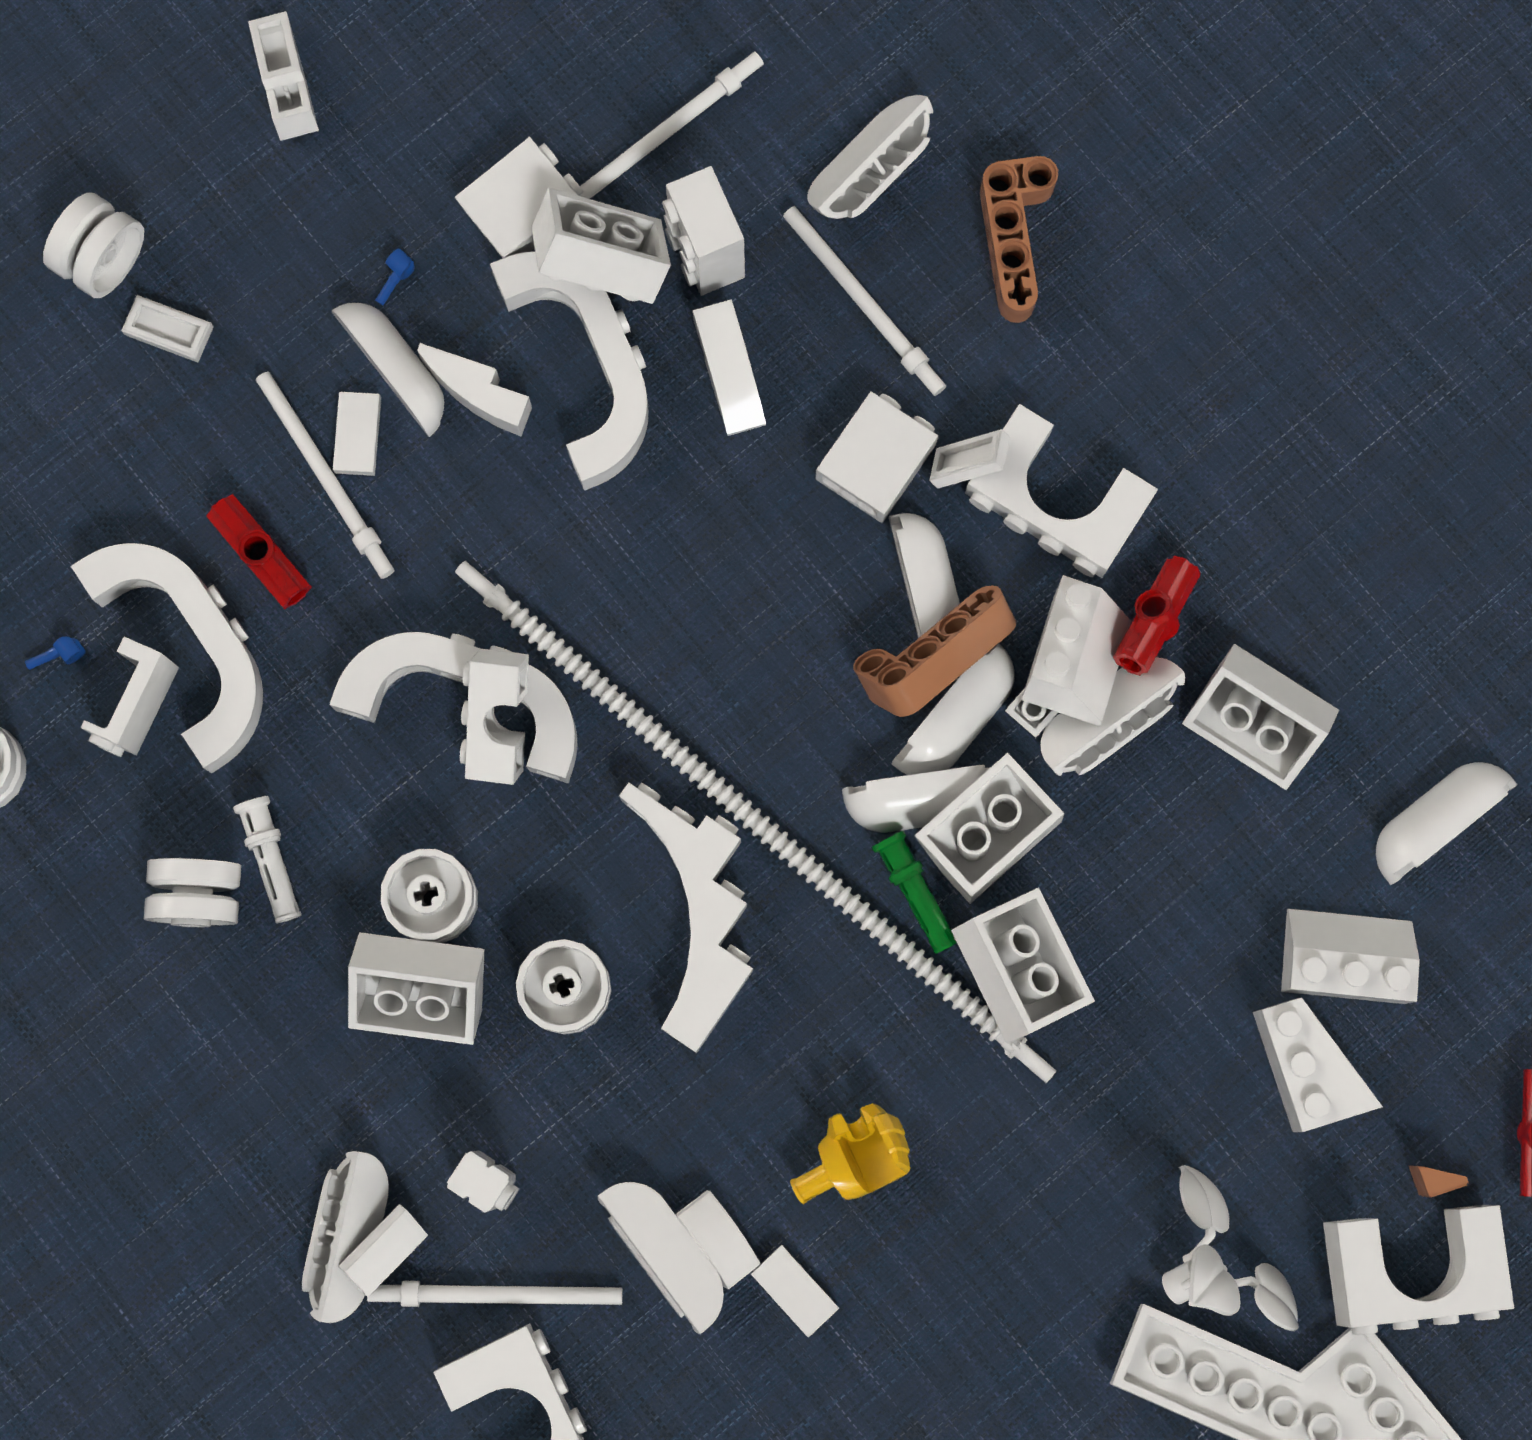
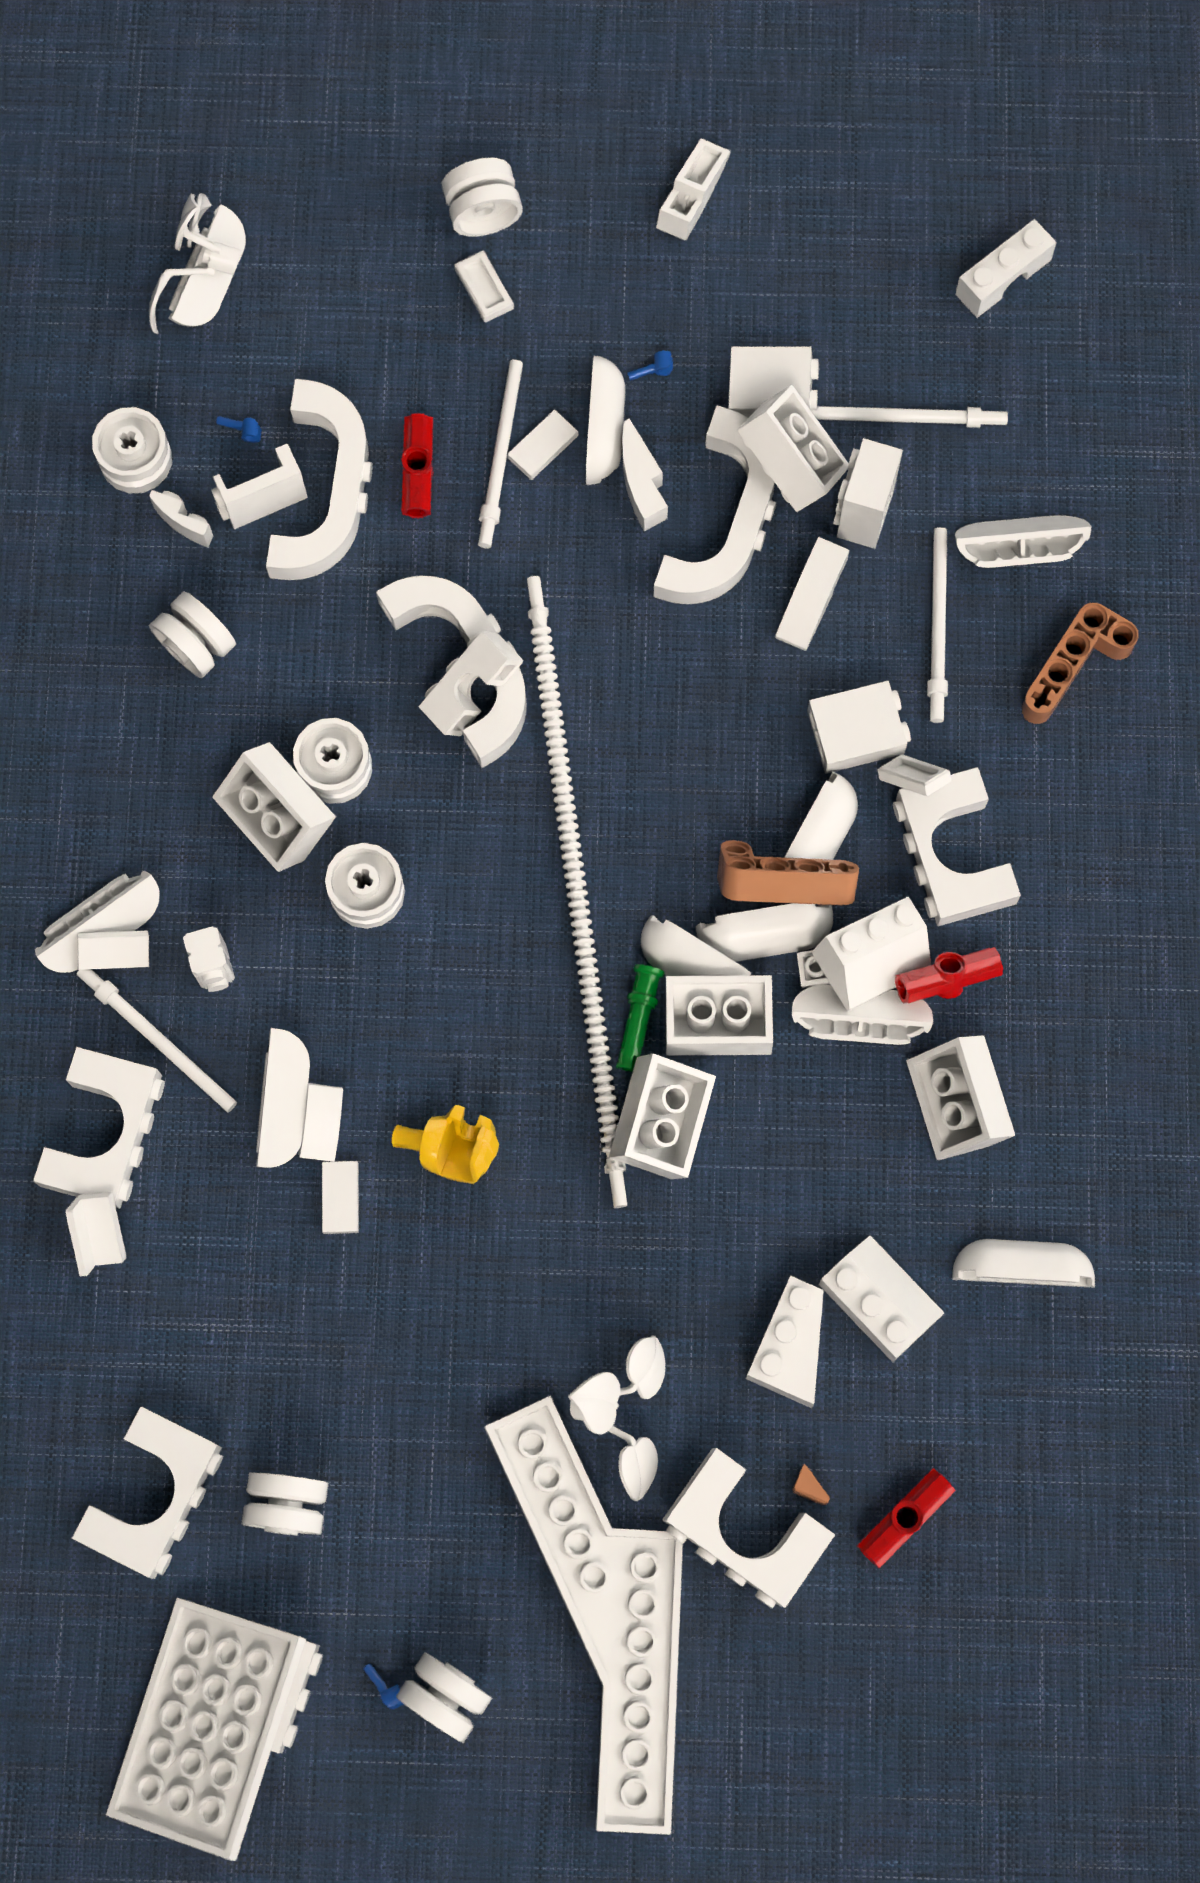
camera: 45 degrees right, 5 degrees down
(66, 788) = (174, 513): none -> white slope
(263, 841) = (263, 643): white pin -> none
(700, 855) = (463, 957): white arch -> none

